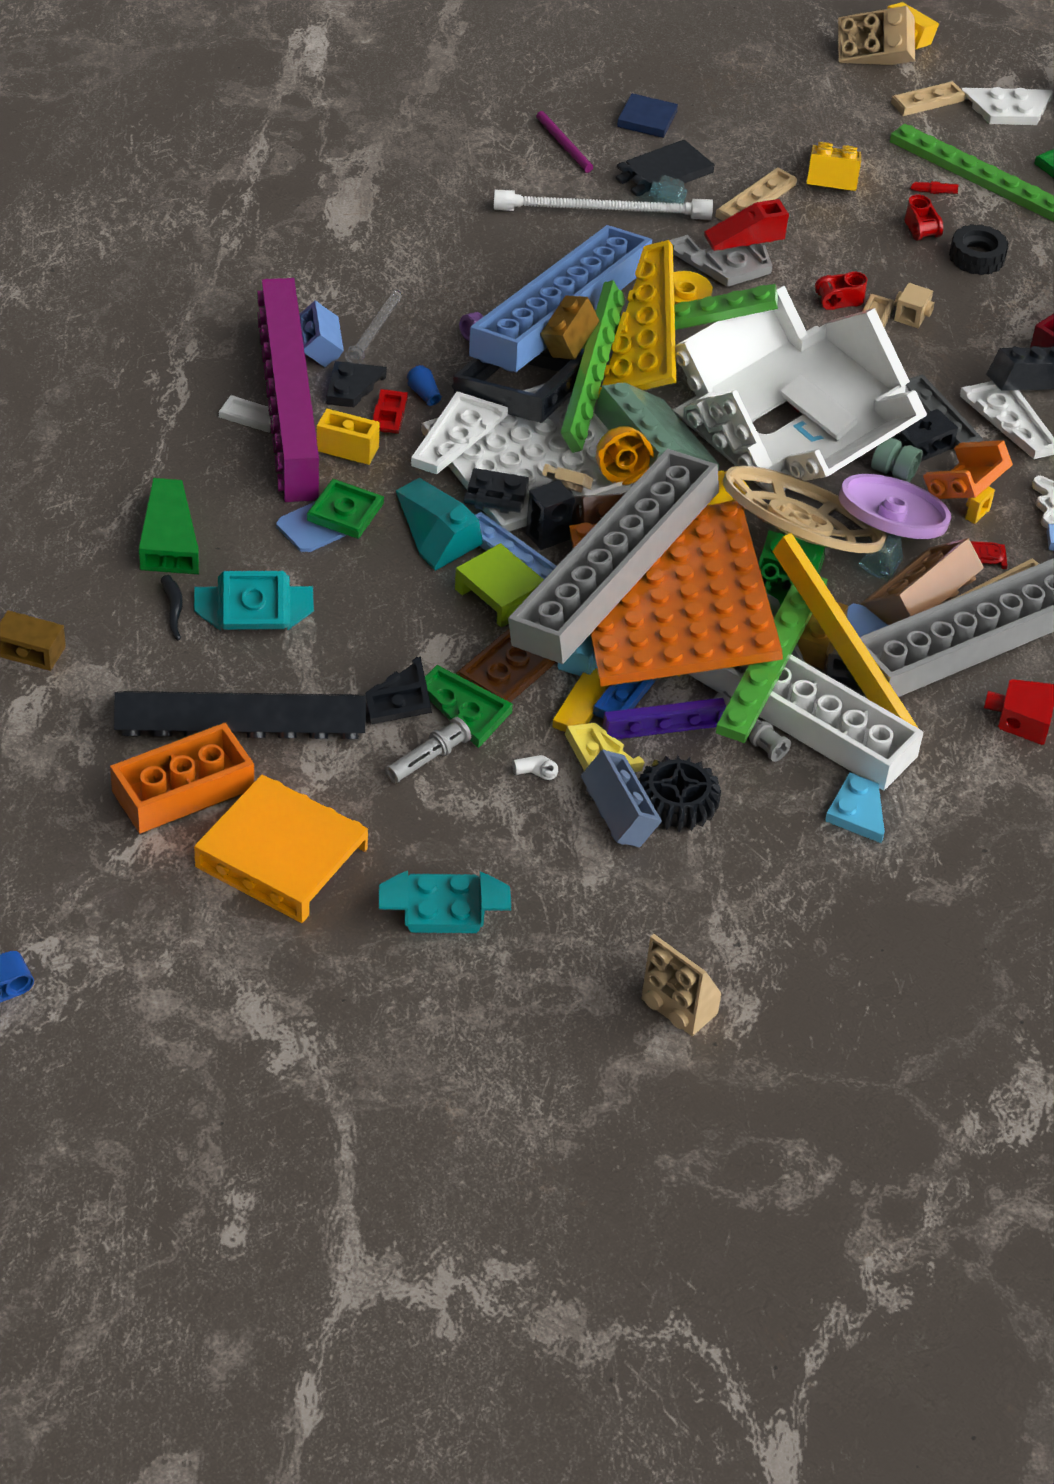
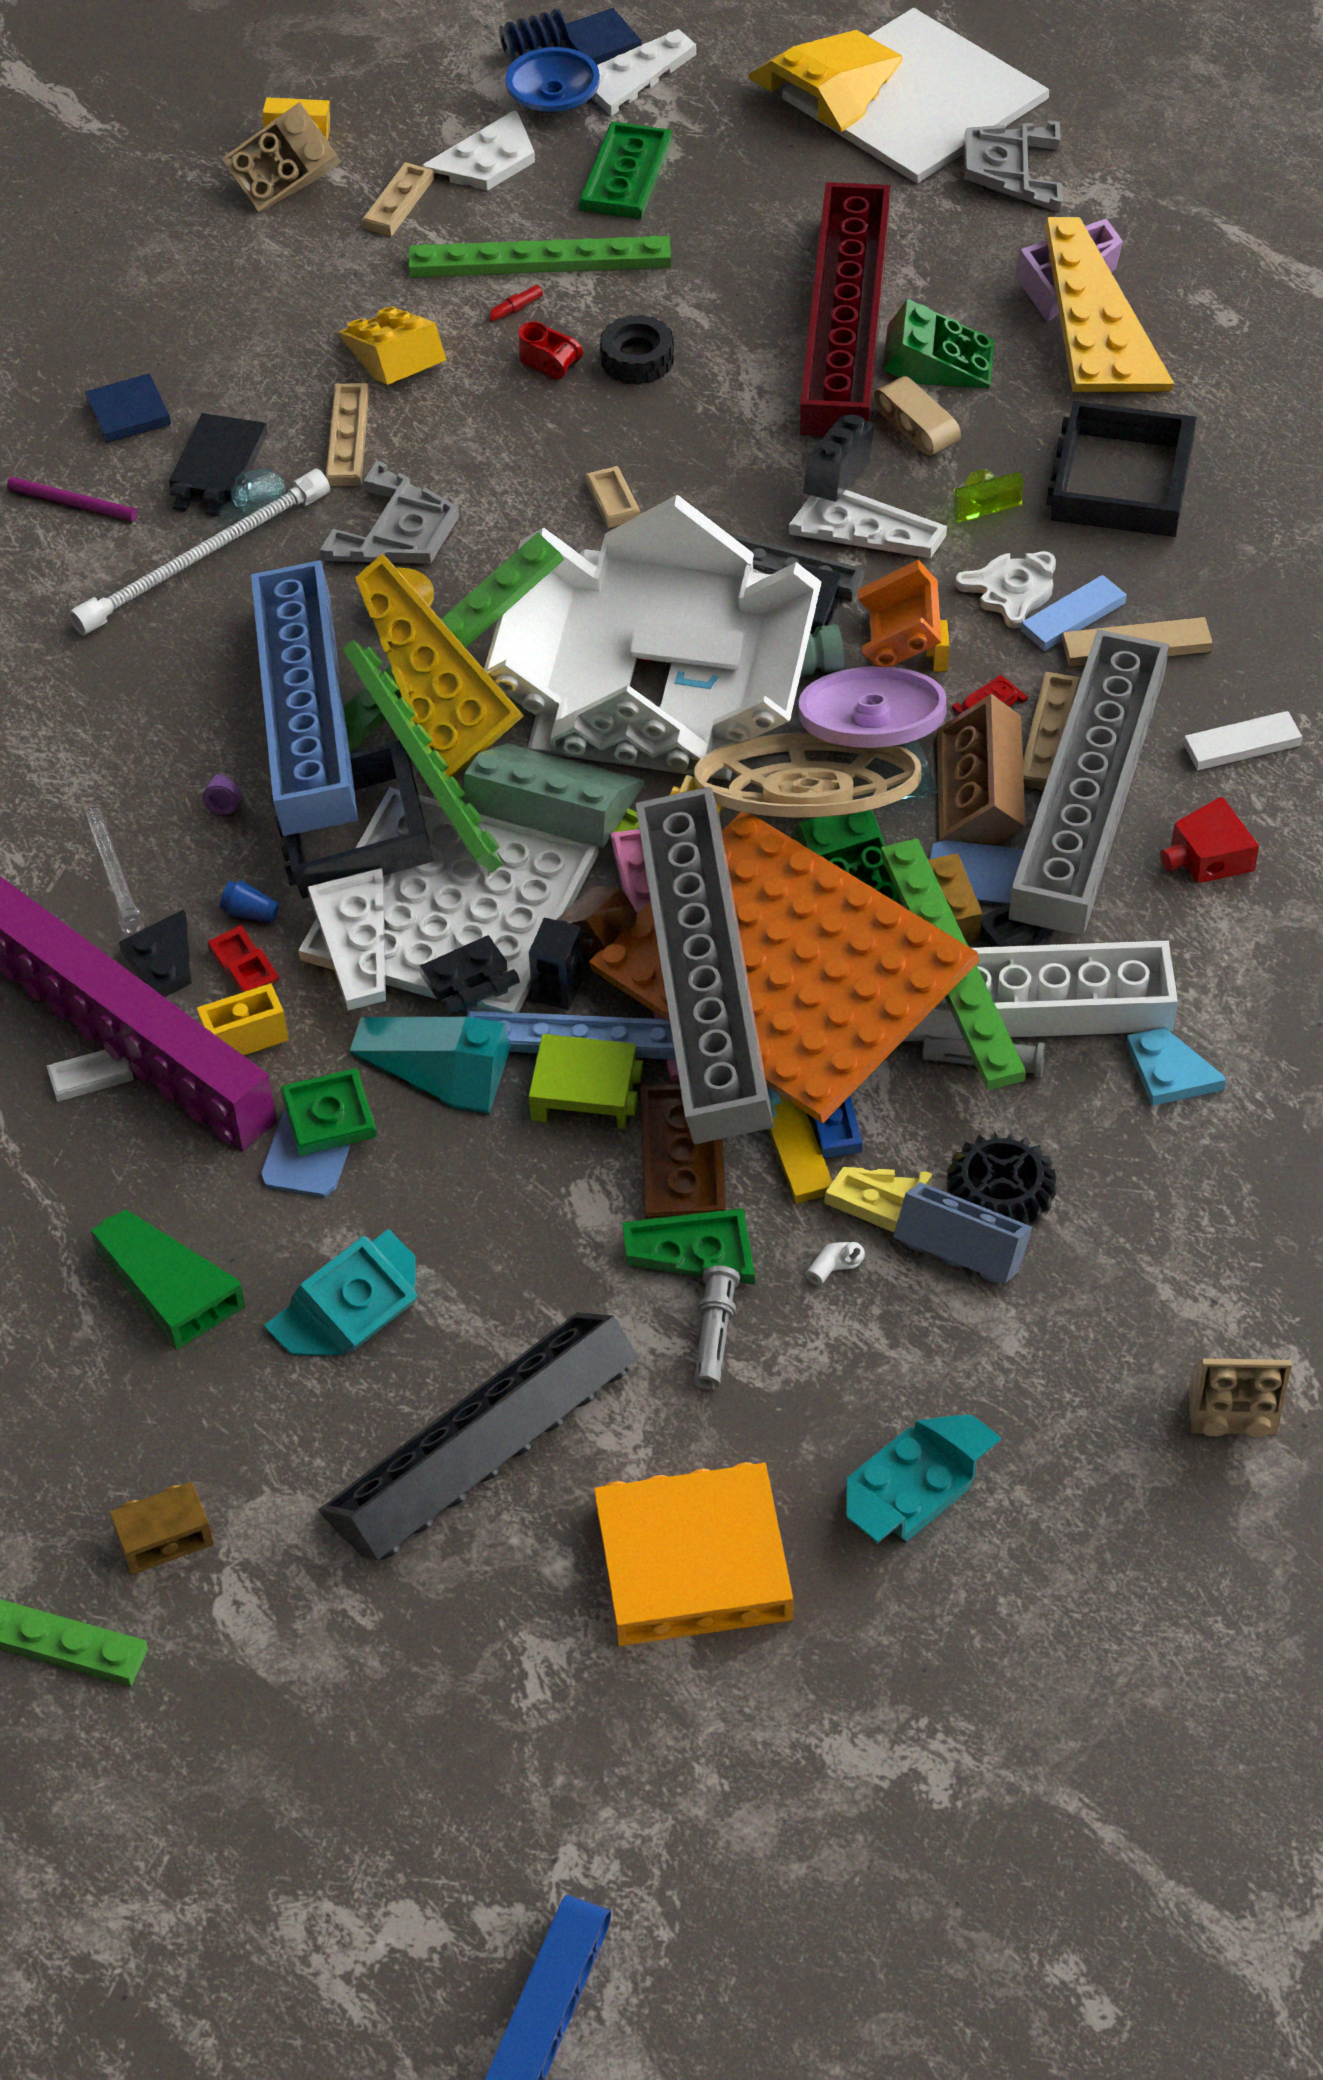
camera: 35 degrees left, 5 degrees up
(175, 596) = (258, 1353): black animal -> none
(182, 777) = (512, 1557): orange brick -> none
(321, 334) = (80, 915): medium blue brick -> none
(400, 695) = (625, 1281): black wing -> none
(570, 327) = (367, 727): pearl gold brick -> none
(570, 479) = (540, 905): tan plate -> none
(623, 455) = (563, 839): light orange cylinder -> none
(664, 718) = (903, 1110): dark purple tile -> none
(753, 225) = (401, 475): red slope -> none
(838, 627) = (988, 886): yellow tile -> none
(845, 290) = (555, 488): red piece -> none
(913, 305) = (643, 459): tan brick -> none

